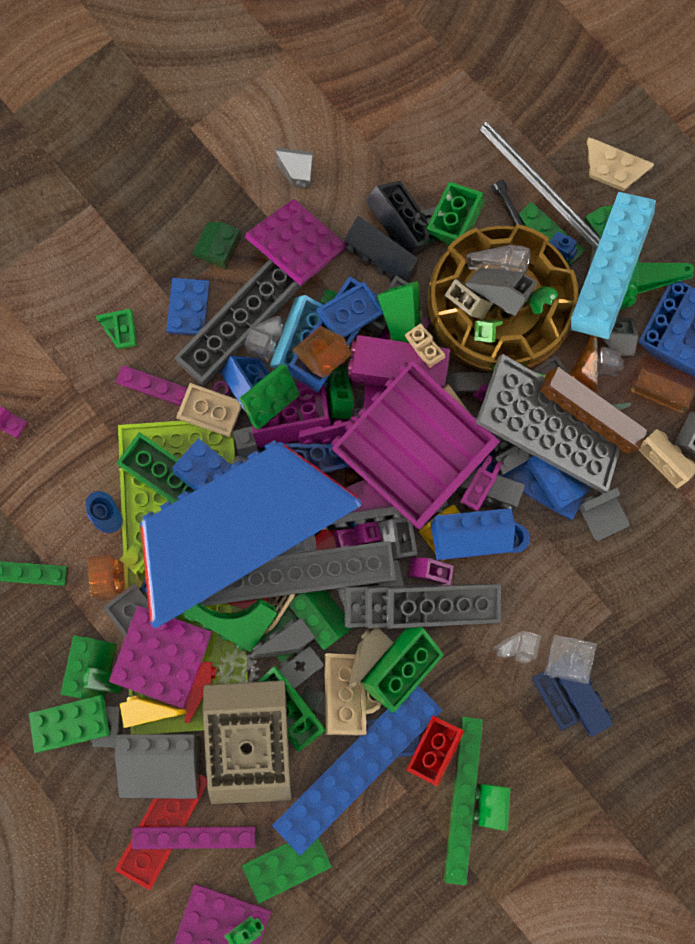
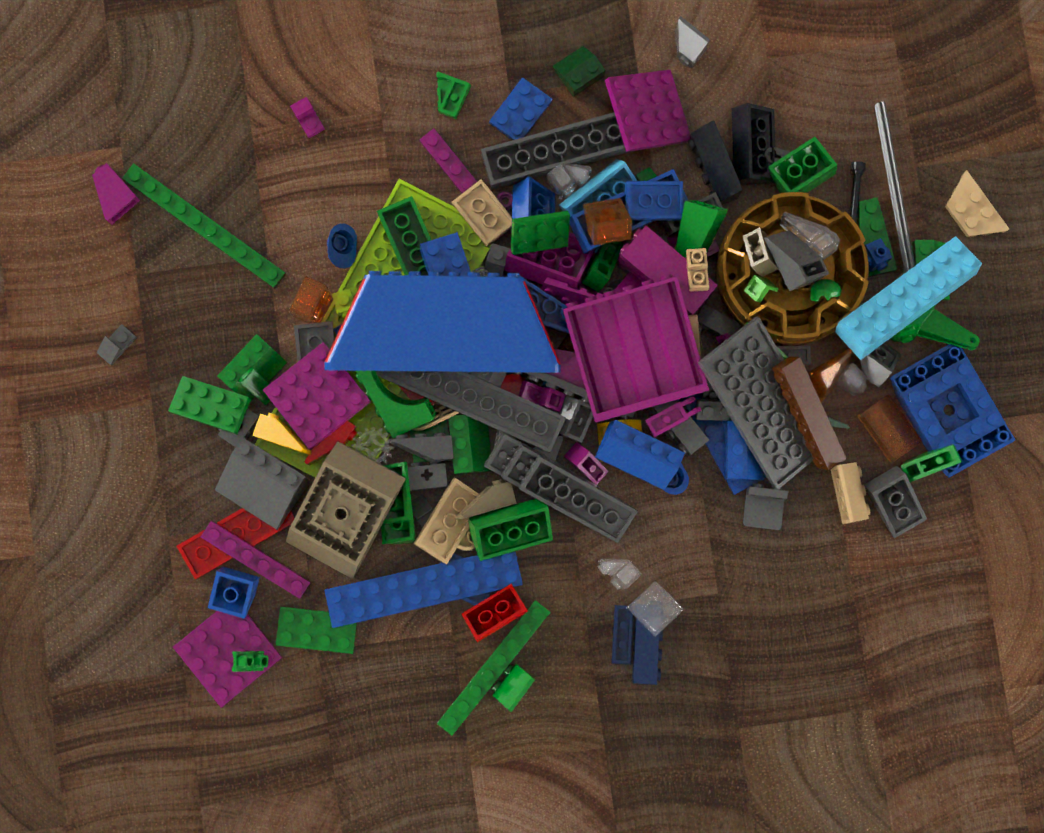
camera: 30 degrees right, 5 degrees up
(191, 879) = (233, 592): none -> blue slope

